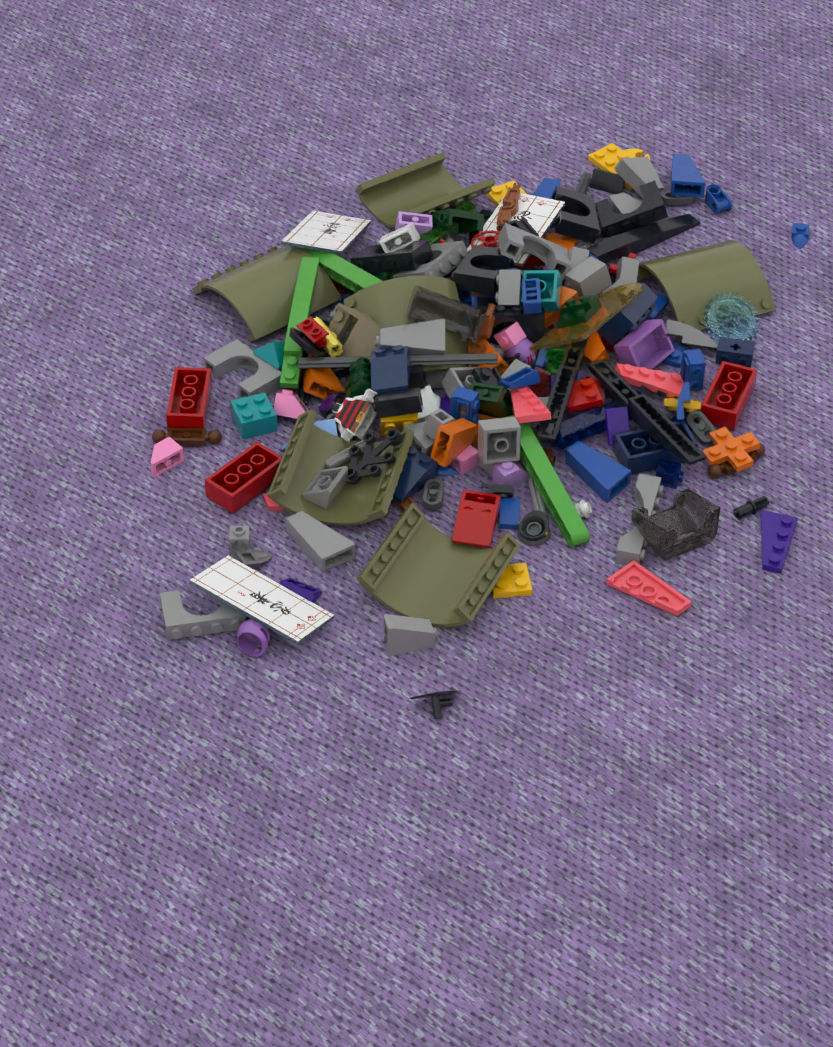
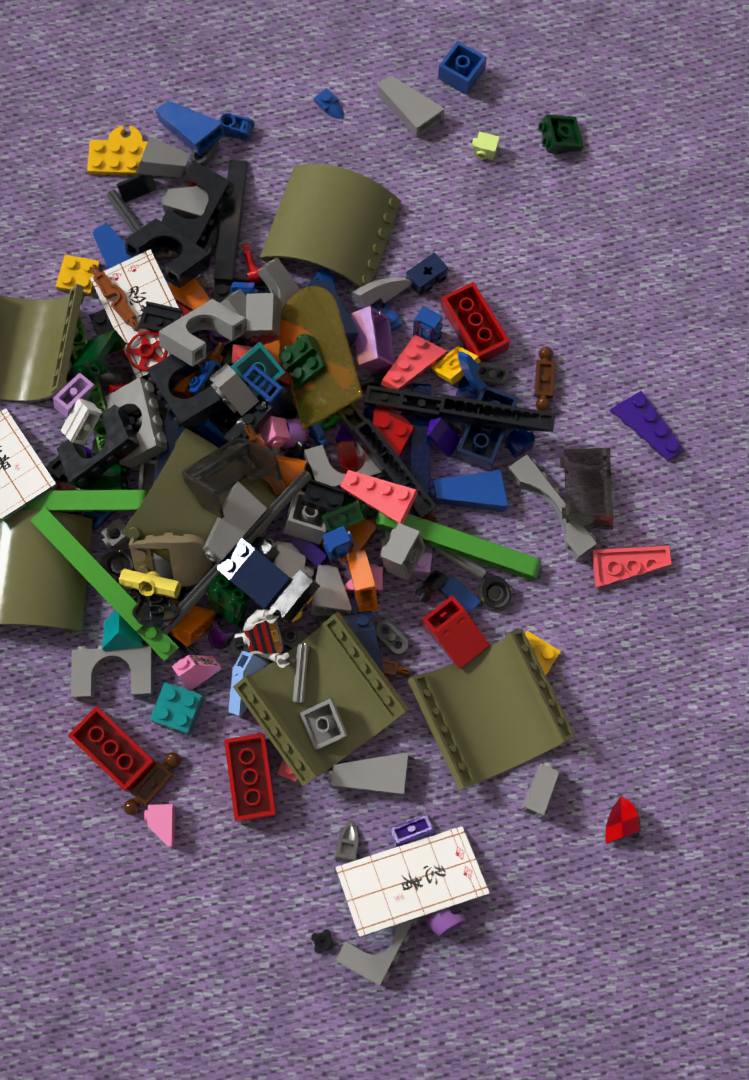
camera: 50 degrees left, 30 degrees up
(166, 585) = (328, 944): none -> black plate
(239, 539) = (320, 840): light grey brick -> none
(313, 331) = (146, 595): red hinge -> none
(370, 457) = (330, 667): black plant -> none
(434, 420) = (339, 578): light grey slope -> none
(521, 378) = (350, 462): blue slope -> none
(584, 508) = (503, 538): white plate -> none
(726, 306) = (405, 251): clear light blue gear -> none
(731, 449) = (536, 375): orange plate -> none
(750, 507) = (602, 413): black axle -> none

